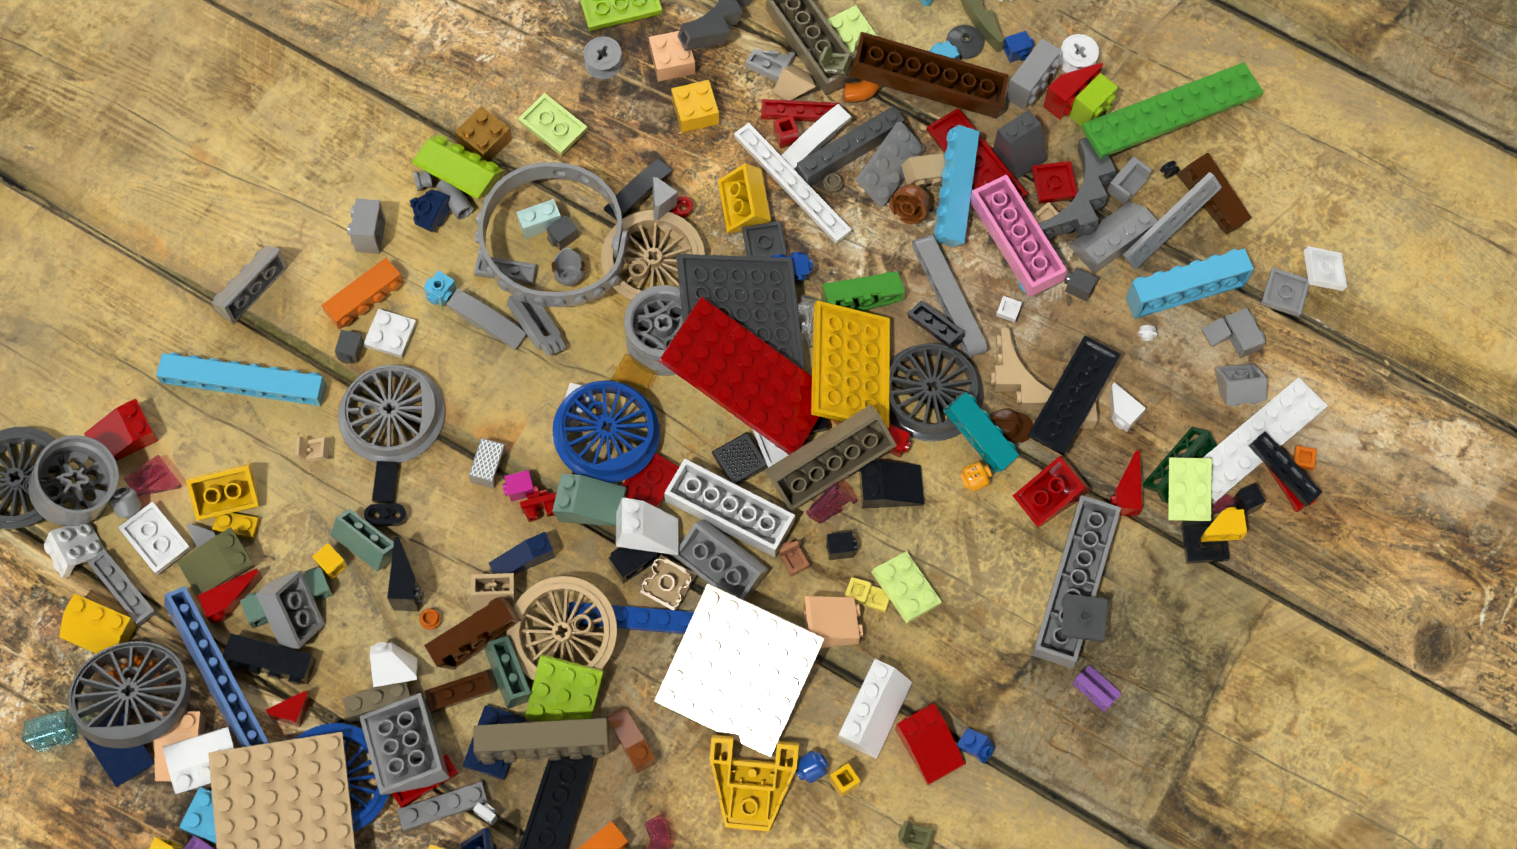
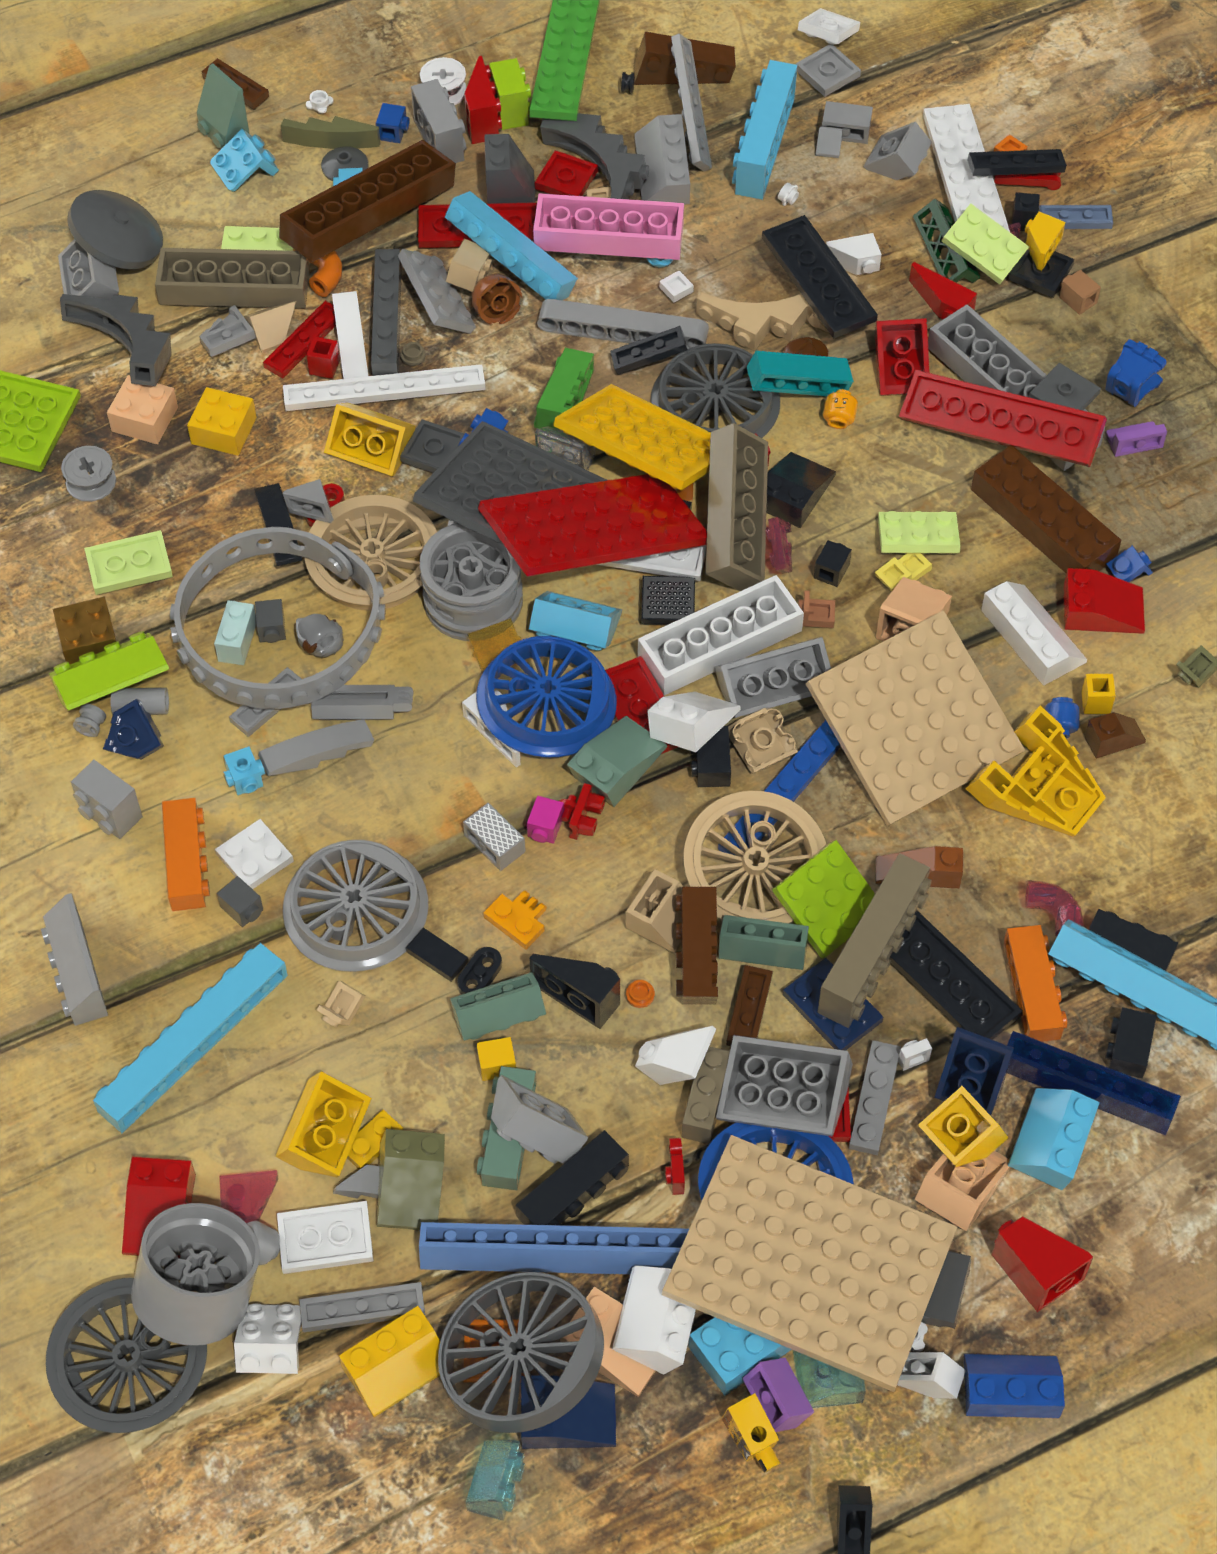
camera: 55 degrees left, 10 degrees down
(226, 597) = (461, 1191): red slope -> none
(291, 710) = (656, 1194): red slope -> none
(315, 714) = (675, 1172): none -> red plate
(440, 513) = (517, 918): none -> light orange hinge
(524, 556) = (632, 859): dark blue slope -> none
(685, 412) = (574, 619): none -> medium azure slope
(823, 810) = (1112, 734): none -> reddish brown slope
(834, 62) = (289, 263): olive bracket -> none
(978, 663) = (1044, 512): none -> reddish brown brick
(1034, 589) = (1003, 418): none -> red plate
(1080, 284) = (698, 215): dark grey brick -> none
(1129, 180) = (613, 115): light grey panel -> none
(1147, 657) = (1135, 372): none -> blue piece
(1202, 578) = (1079, 291): none -> medium nougat brick
(1276, 538) = (1081, 215): none -> sand blue tile

